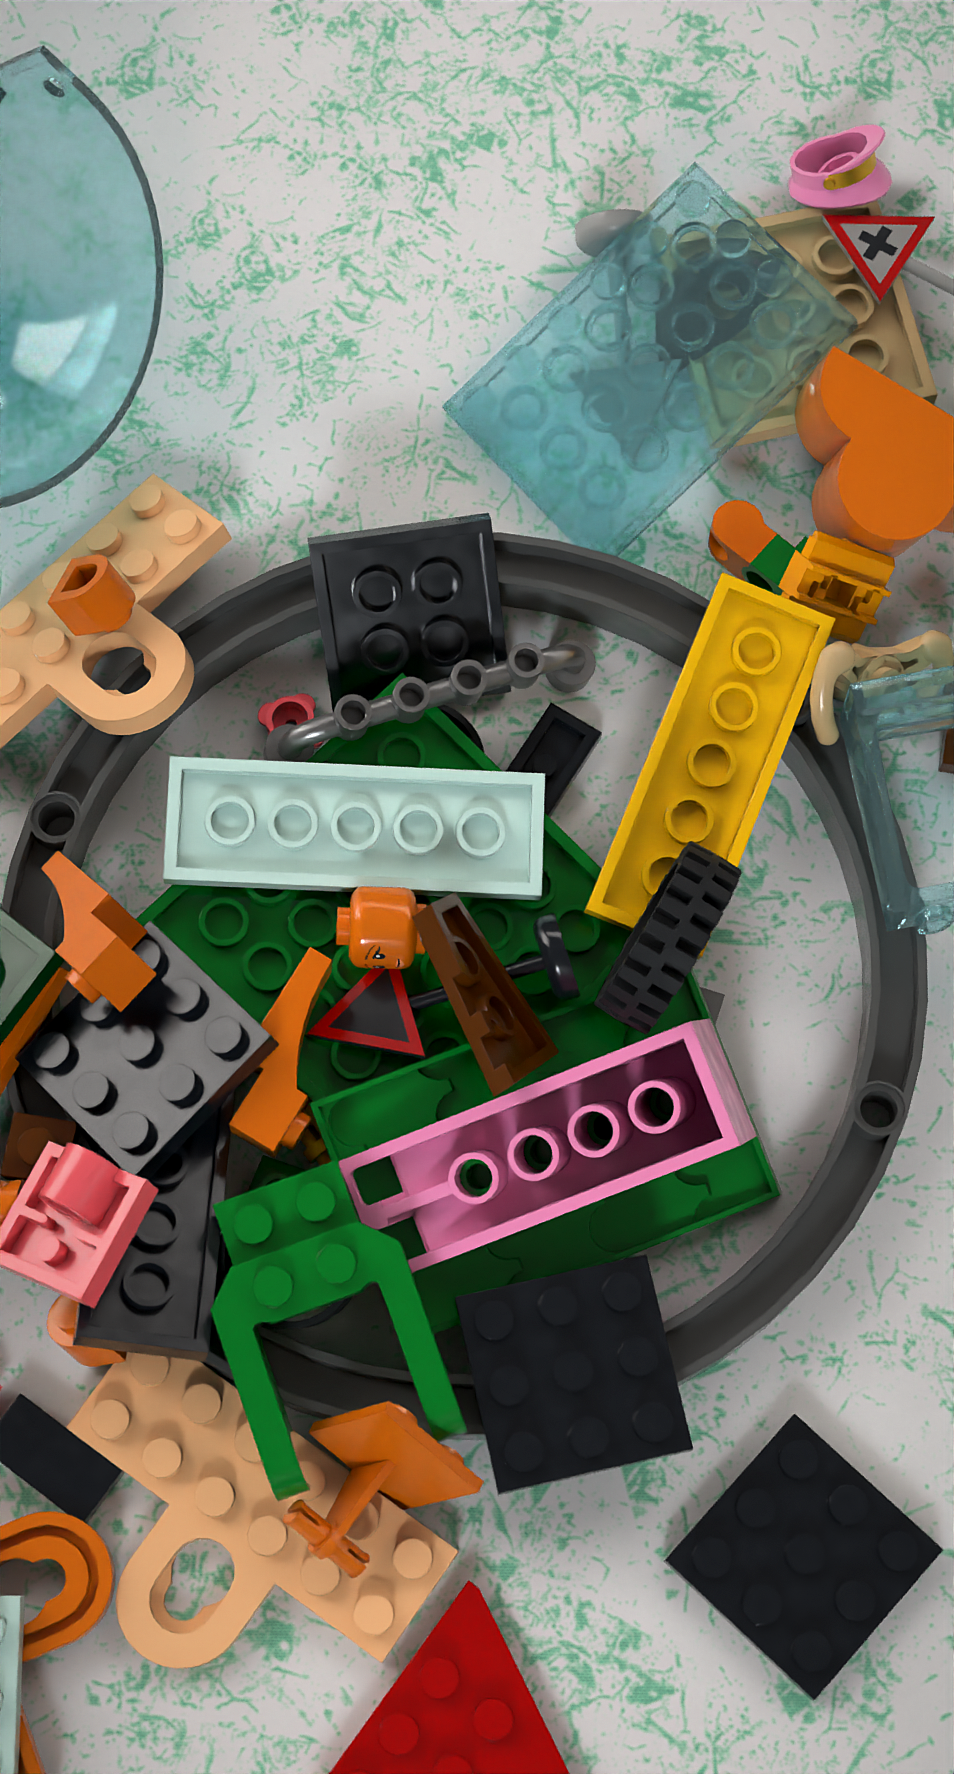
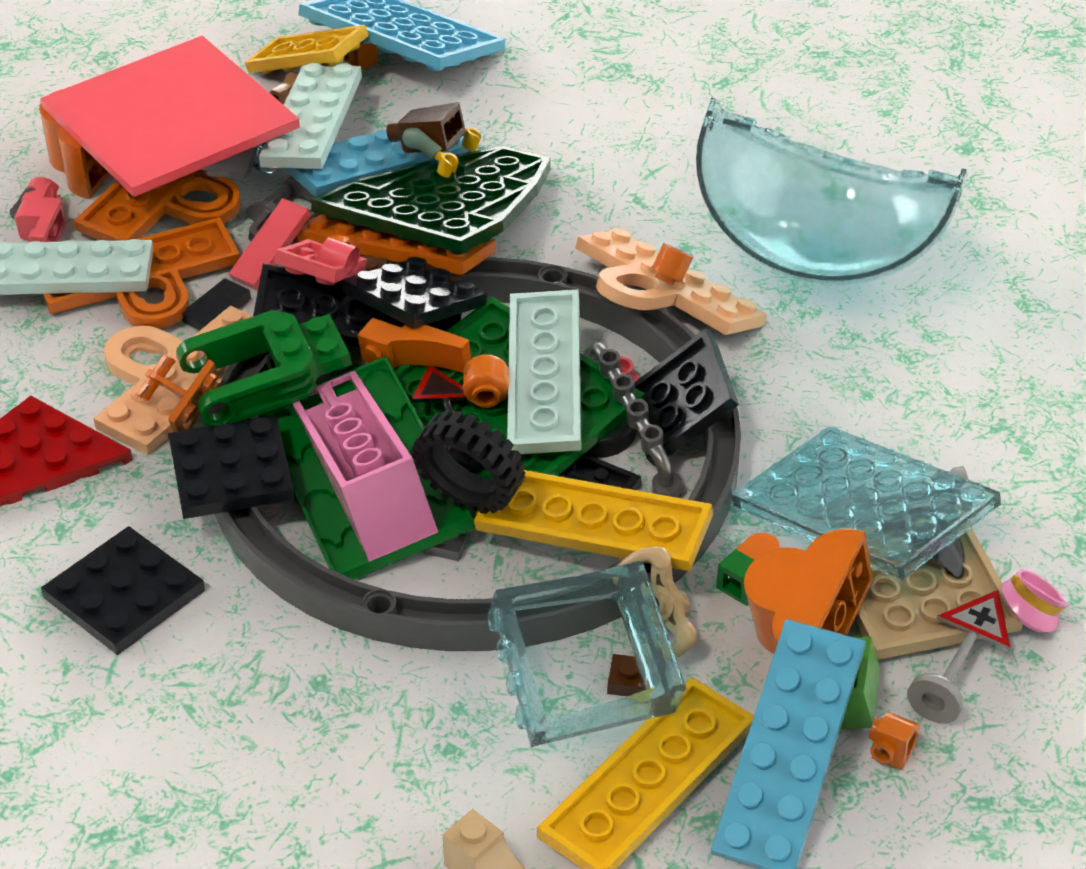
camera: 90 degrees right, 30 degrees down
(97, 937) = (478, 265): orange slope -> none
(486, 1000) = (415, 403): reddish brown wing -> none
(839, 582) = (721, 587): light orange piece -> none

